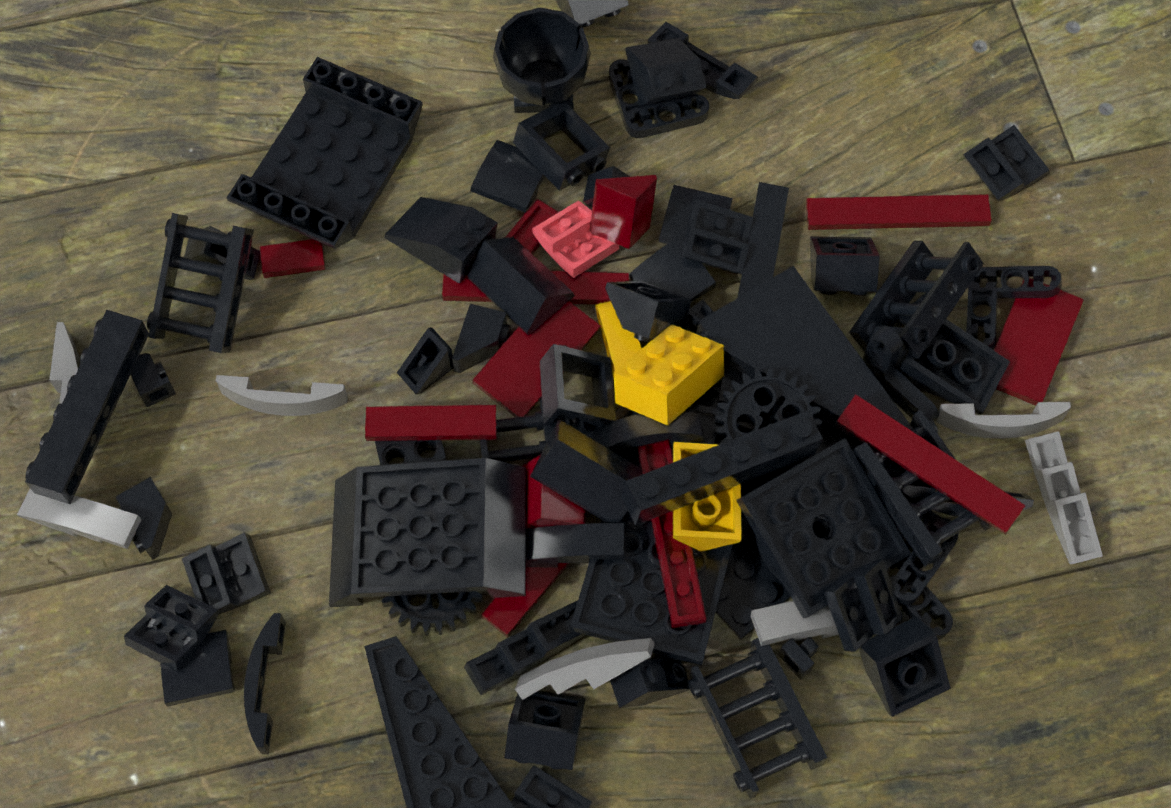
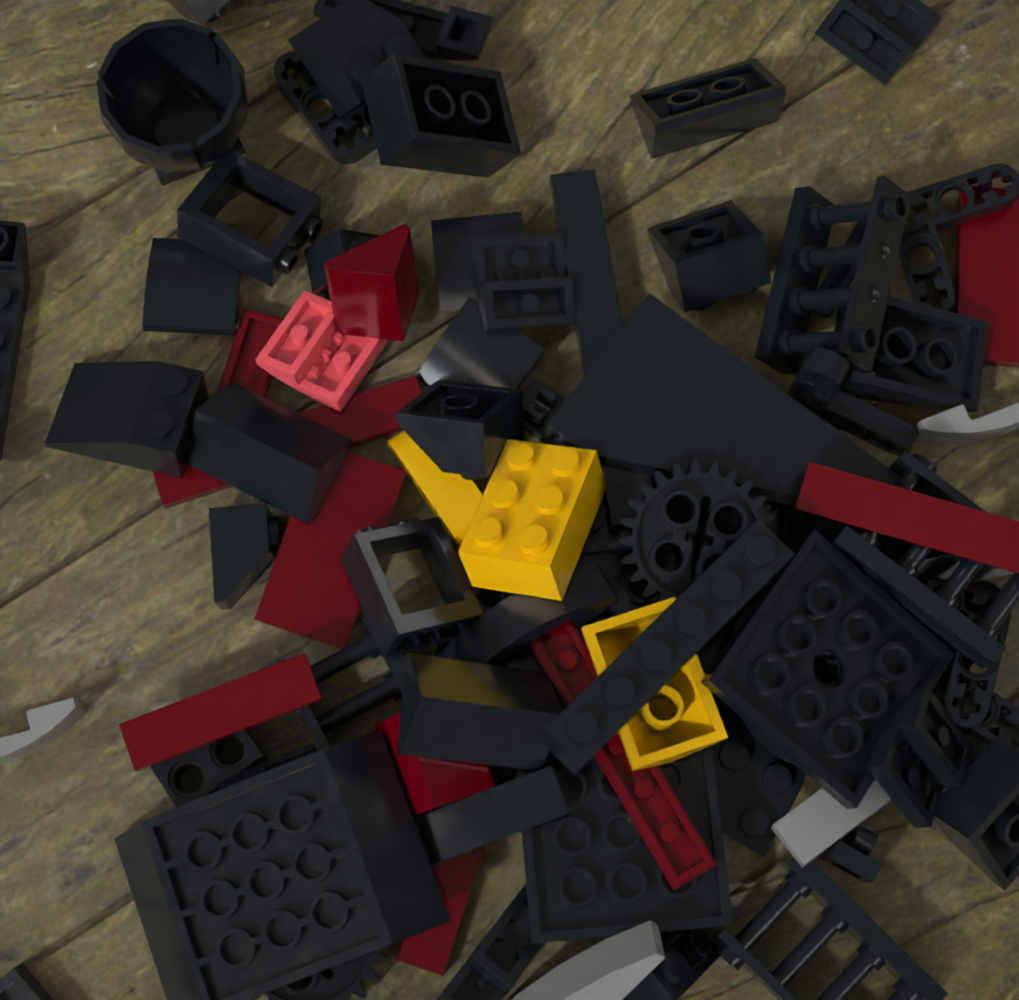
camera: 20 degrees left, 10 degrees up
(426, 362) = (178, 616): black slope -> none
(702, 122) = (440, 116): none -> black brick
(875, 176) = (708, 107): none -> black slope
(898, 212) = (755, 150): dark red tile -> none

